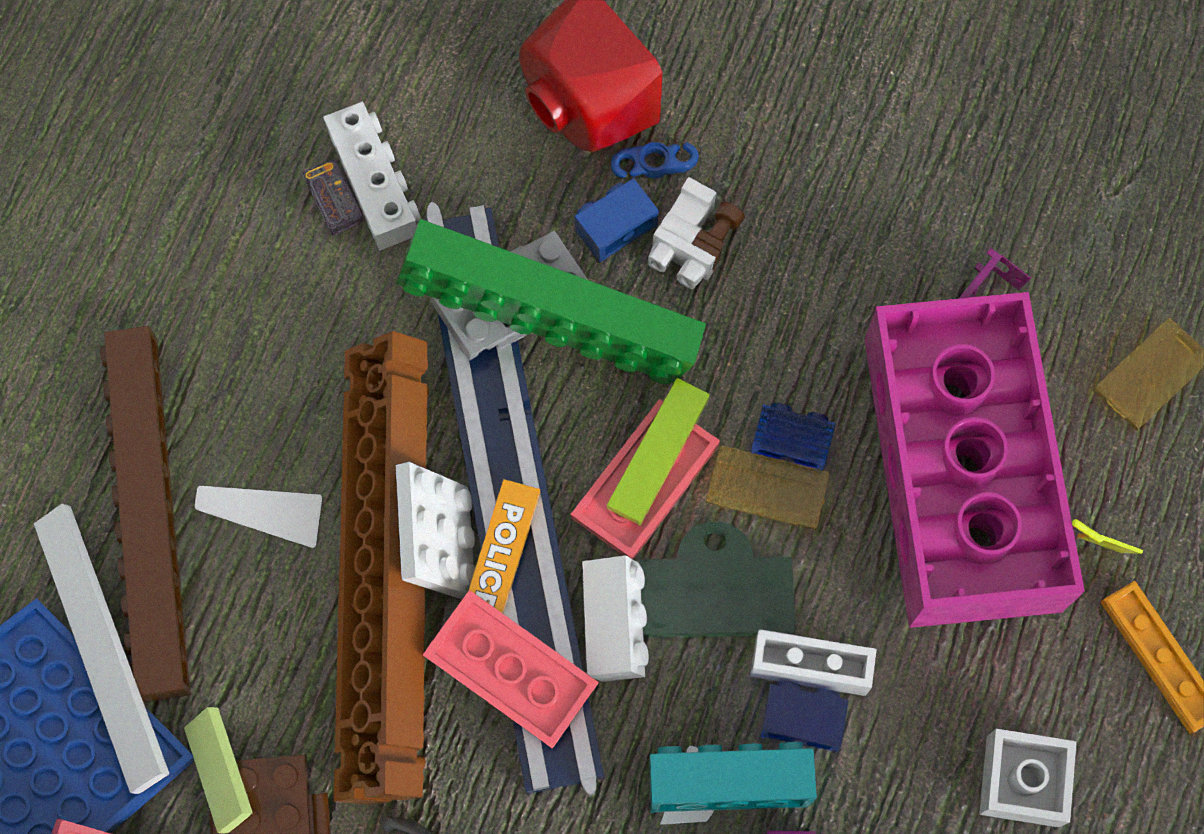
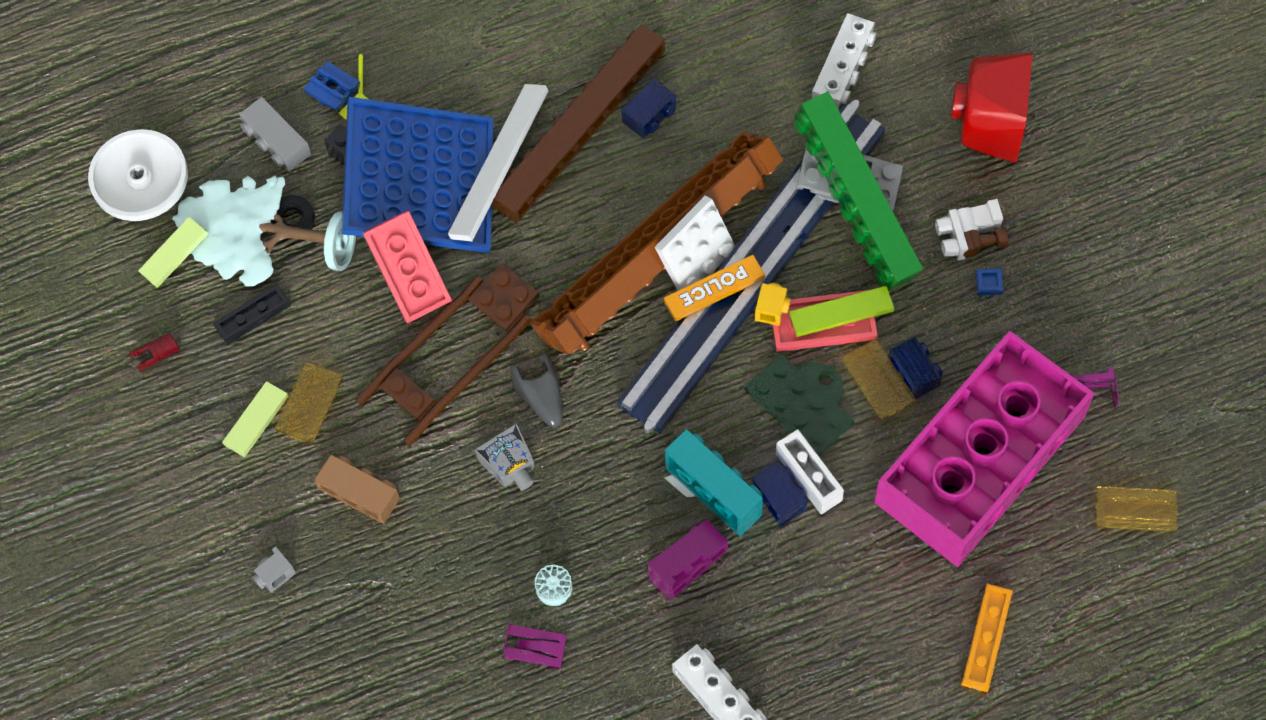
camera: 50 degrees right, 5 degrees down
(210, 420) = (649, 108): none -> clear blue brick
(218, 770) = (494, 262): yellowish green tile -> none
(273, 512) = (635, 177): white sticker -> none
(333, 197) = (814, 57): clear purple tile -> none
(510, 669) = (665, 338): coral plate -> none
(581, 514) = (772, 304): none -> yellow brick
(614, 619) = (738, 366): white brick -> none
(616, 219) = (940, 188): blue brick -> none
(638, 156) = (988, 169): blue piece -> none
(764, 273) = (989, 282): none -> blue tile
(1028, 778) = (854, 618): white brick -> none
(1092, 536) = (1007, 541): neon yellow piece -> none

